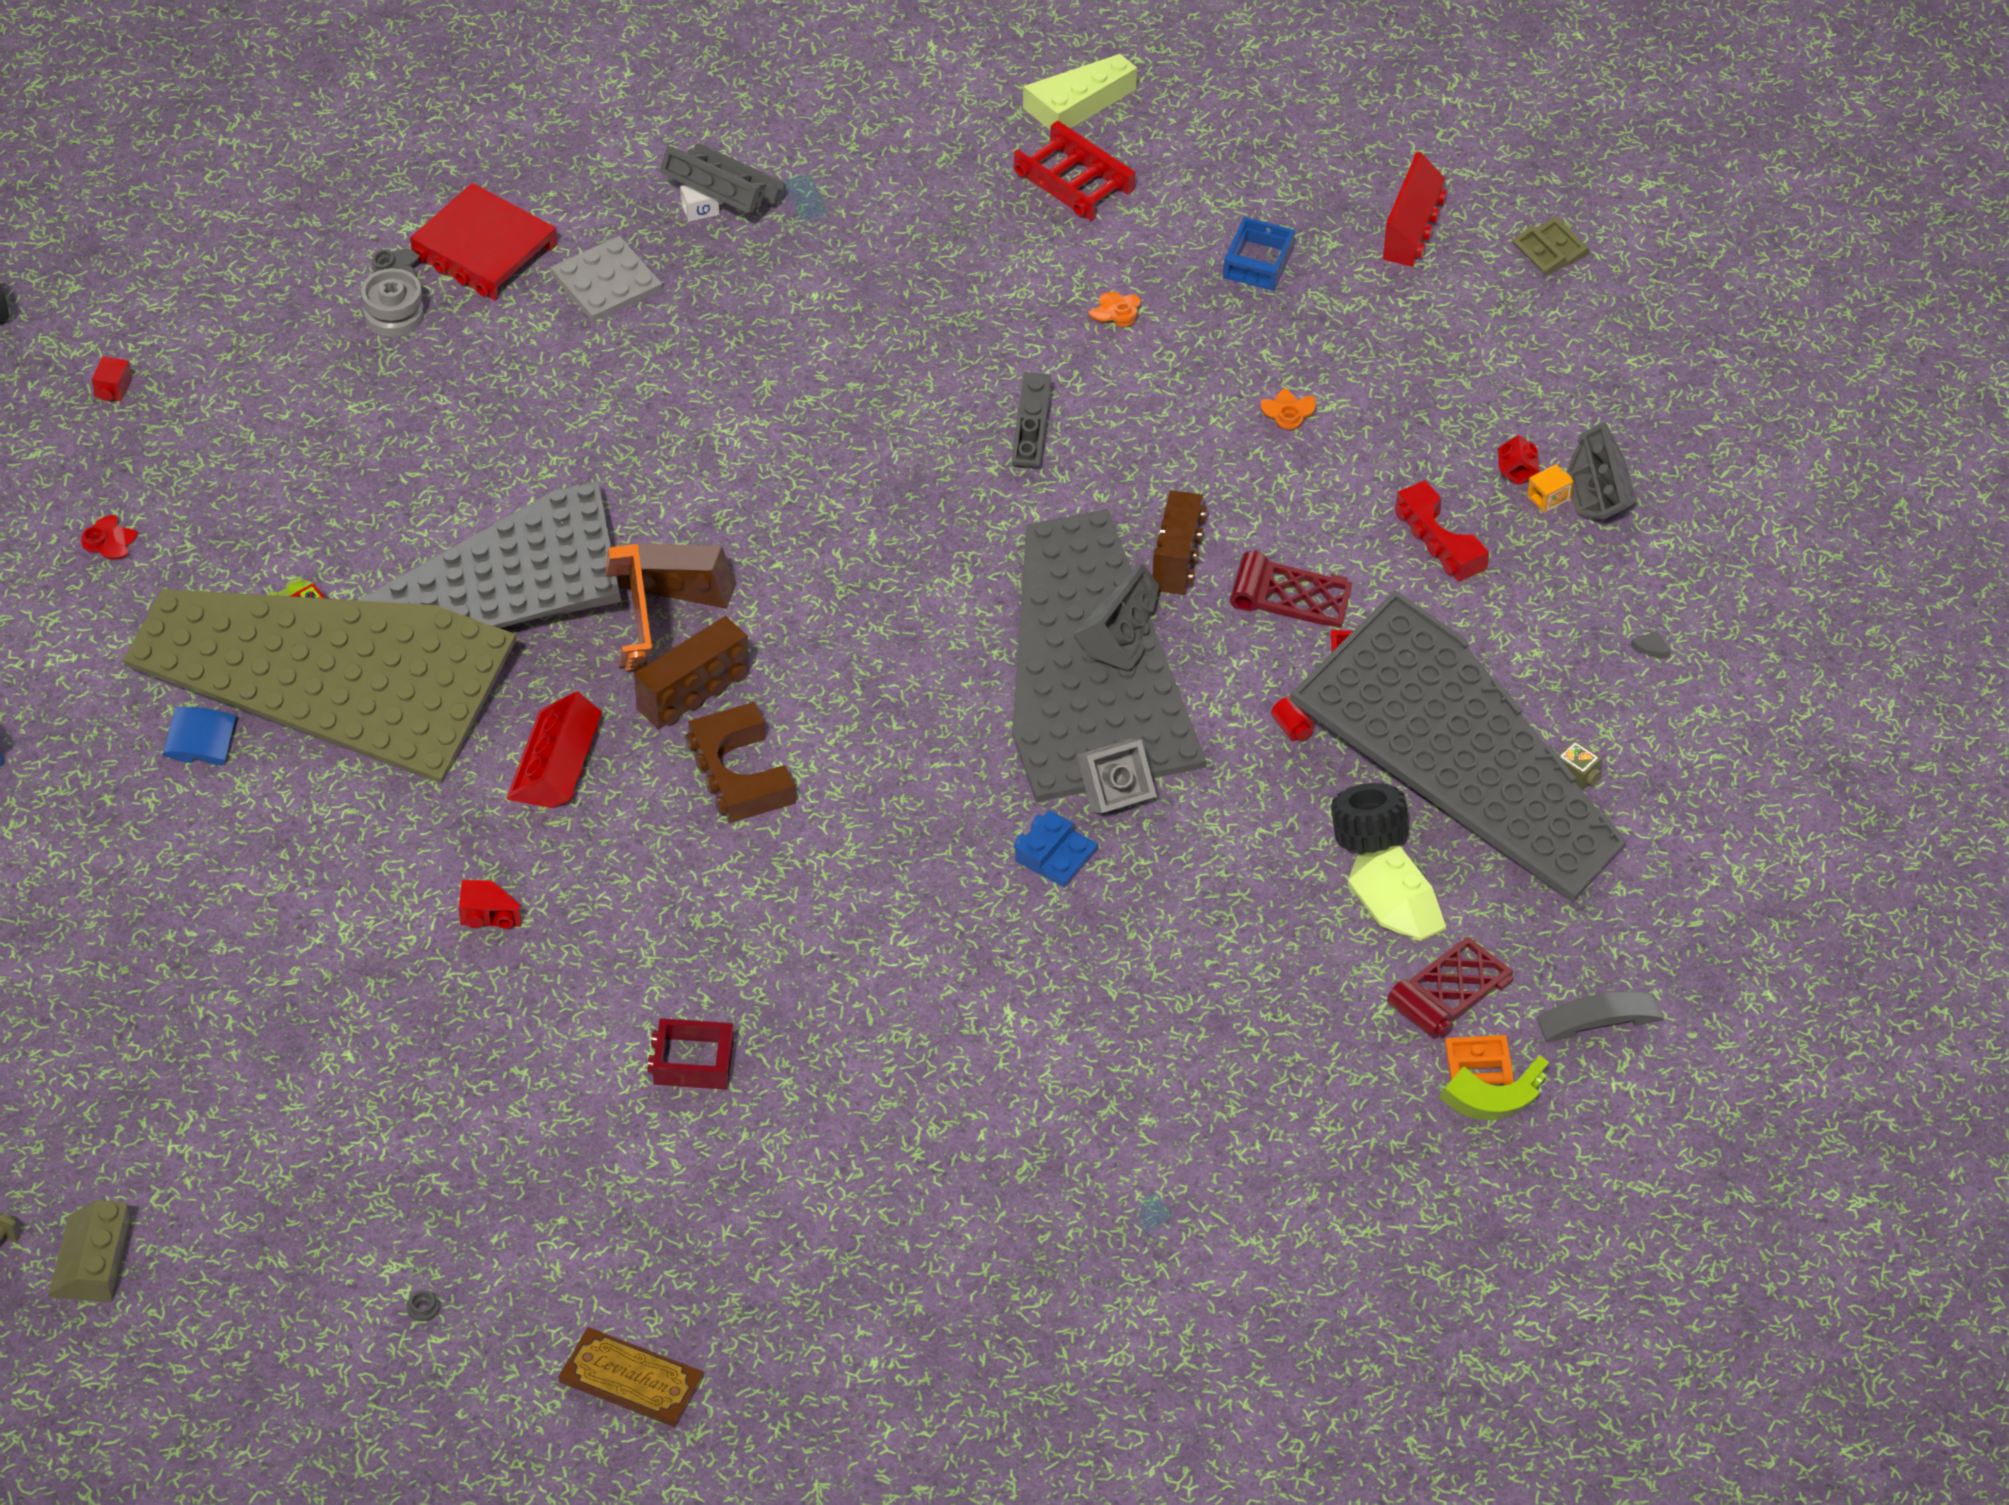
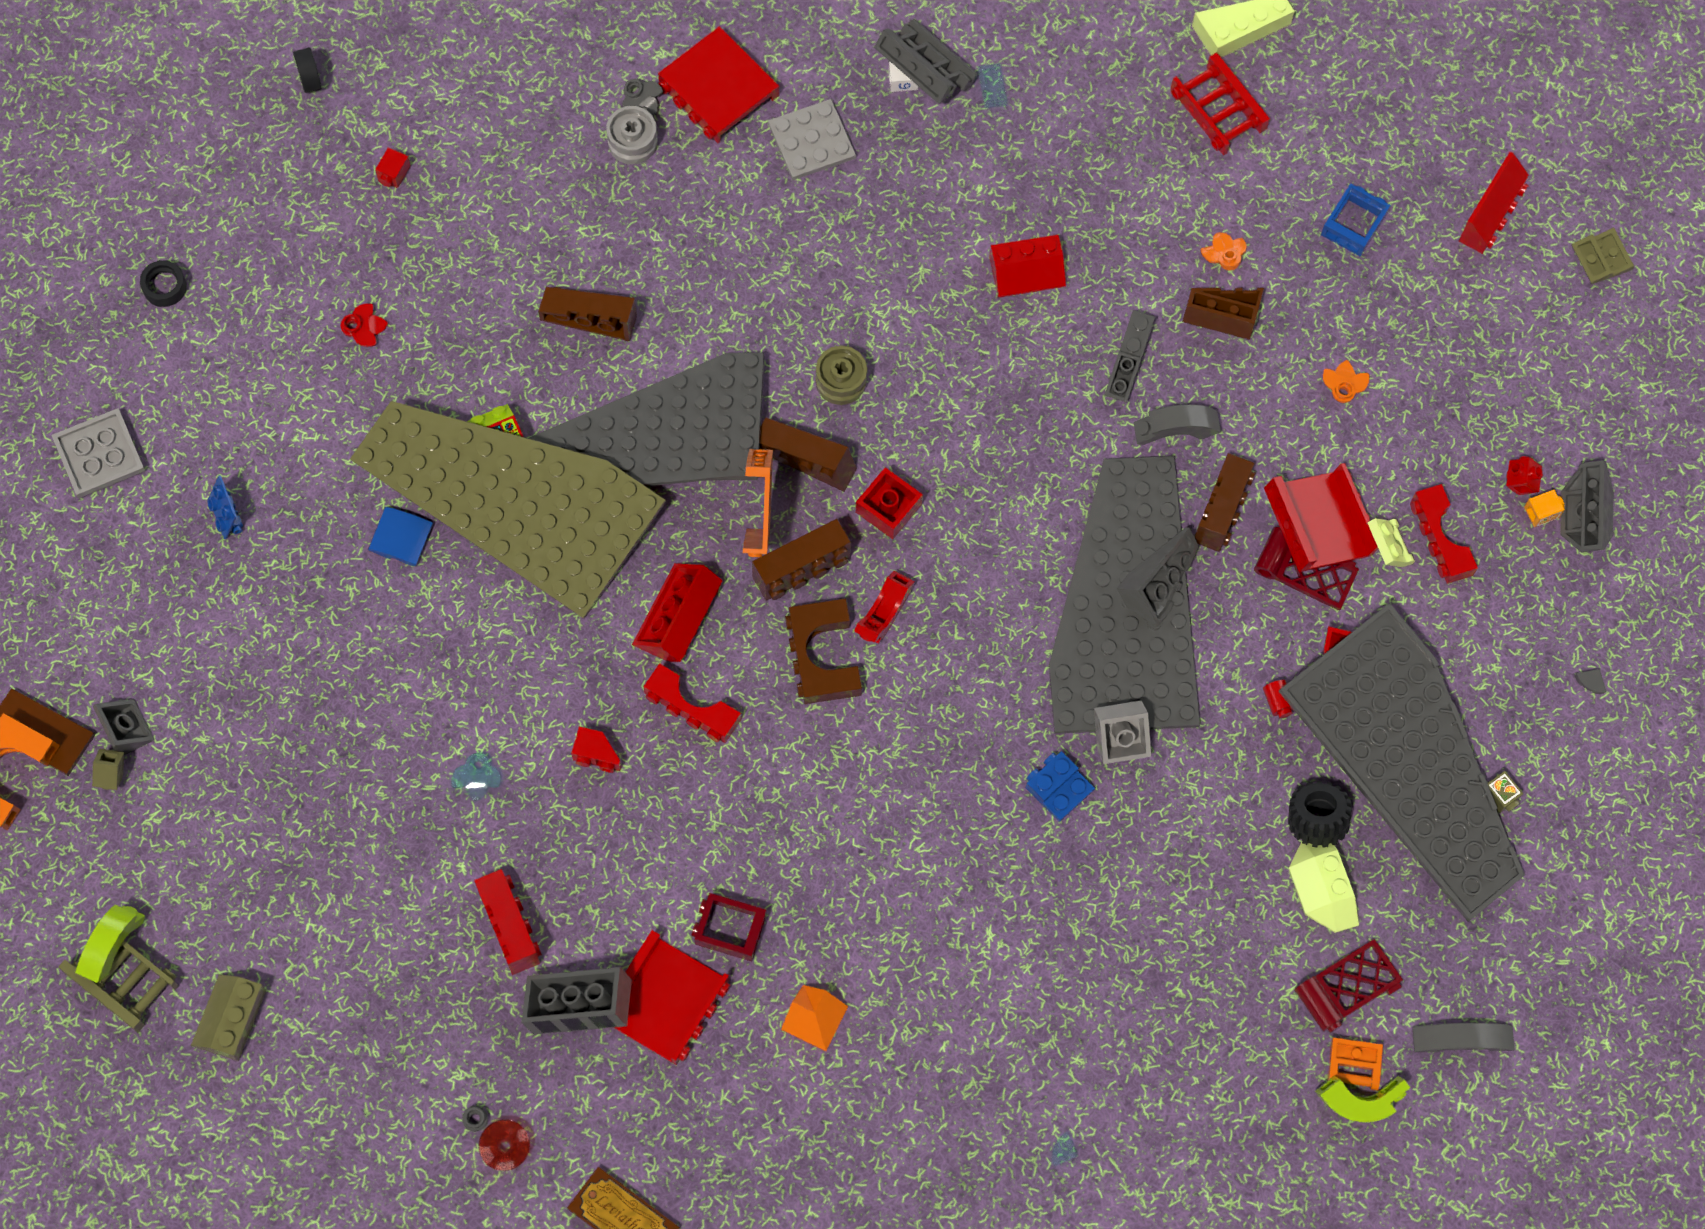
camera: 10 degrees right, 20 degrees up
(346, 962) = (474, 779): none -> clear light blue plate
(381, 477) = (589, 312): none -> reddish brown wedge
(420, 1094) = (507, 921): none -> red wedge
(461, 1313) = (501, 1132): none -> clear red dish
(523, 1148) = (576, 1000): none -> dark grey brick
(625, 851) = (717, 720): none -> red arch
(627, 1143) = (670, 998): none -> red panel
(696, 491) = (841, 375): none -> olive wheel
(783, 603) = (888, 503): none -> red brick
(804, 706) = (885, 608): none -> red arch
(817, 1128) = (814, 1016): none -> orange slope
(889, 354) = (1027, 265): none -> red slope
(1100, 467) = (1177, 420): none -> dark grey arch
(1129, 359) = (1224, 310): none -> reddish brown wedge
(1297, 537) = (1322, 519): none -> panel
(1382, 547) = (1390, 542): none -> yellowish green plate

